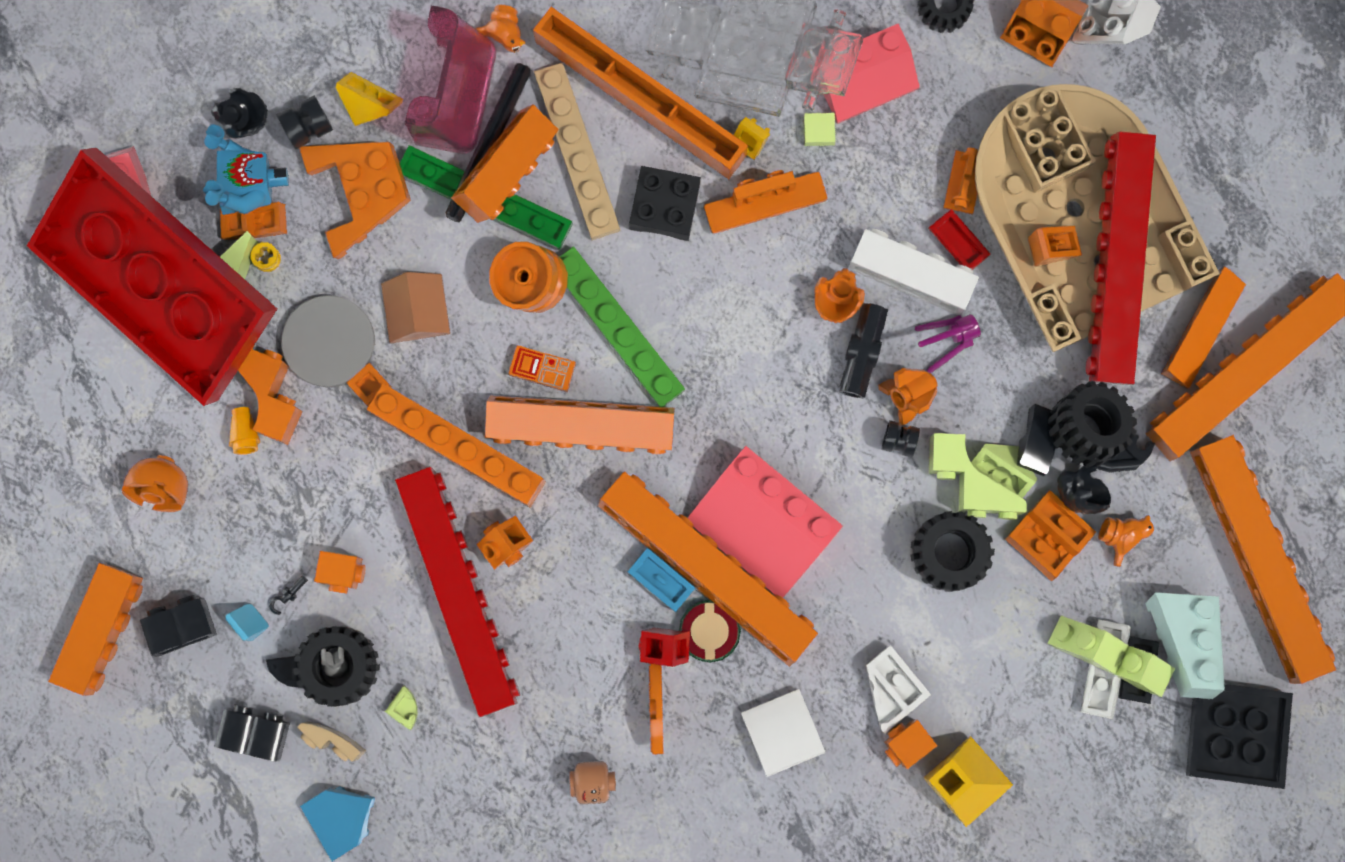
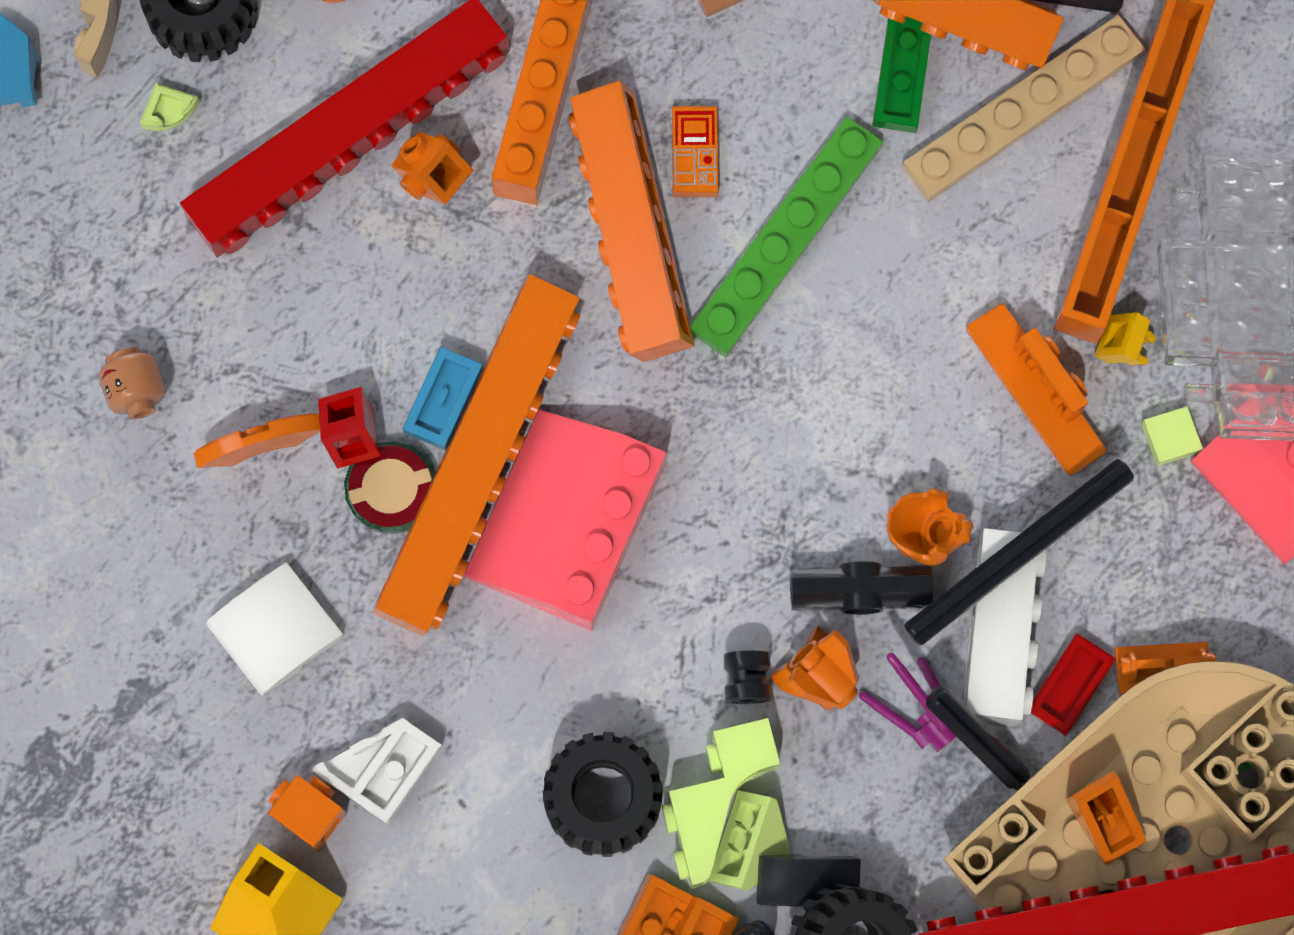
camera: 70 degrees right, 5 degrees down
(528, 277) = (814, 88): orange wheel -> none
(664, 203) = (987, 247): black brick -> none
(875, 244) = (1018, 552): none -> black axle
(982, 307) = (977, 738): none -> black axle

